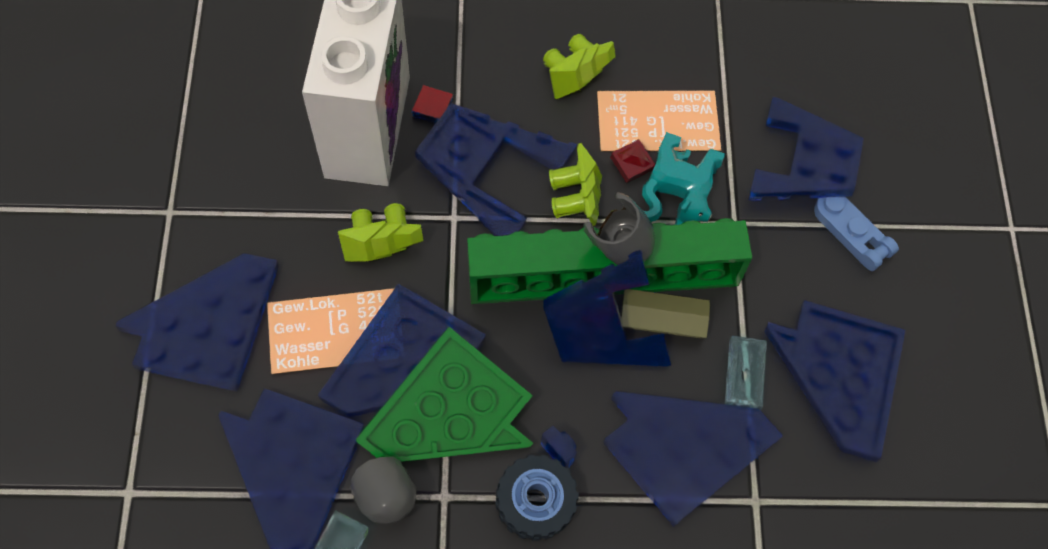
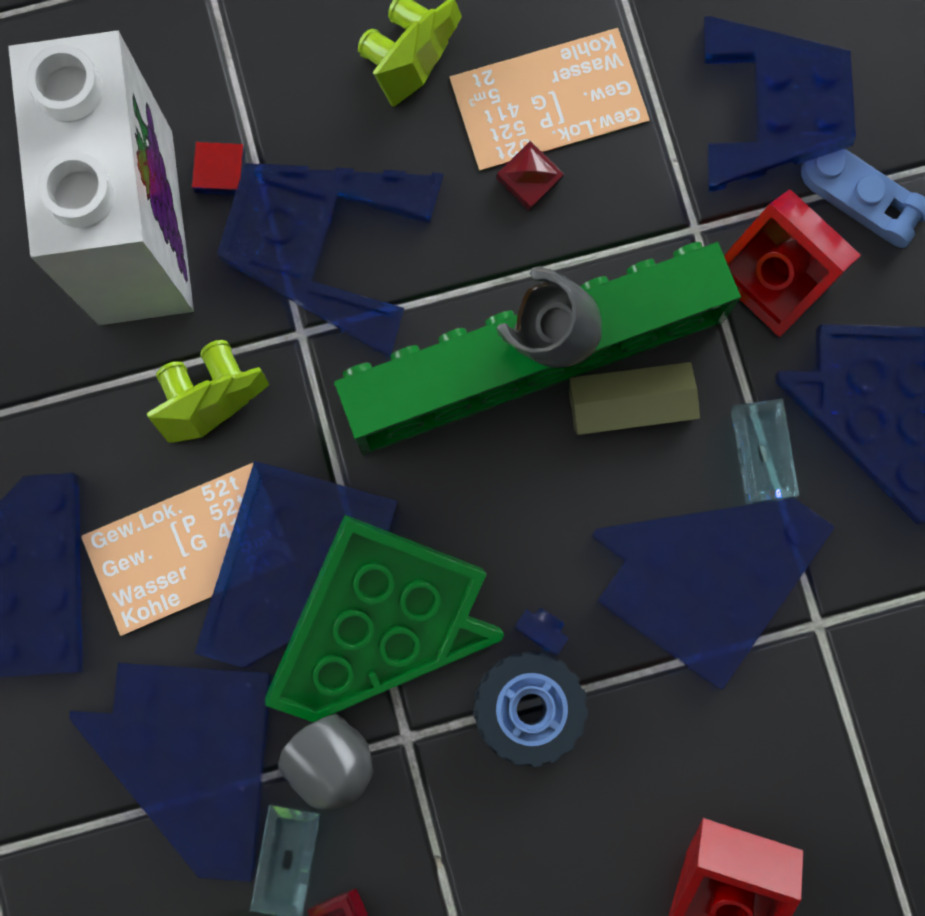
camera: 10 degrees left, 15 degrees up
(584, 173) = (474, 221): lime connector -> none
(589, 323) = (539, 450): clear blue wing -> none
(679, 178) = (606, 188): teal animal -> none
(790, 256) = (787, 261): none -> red slope

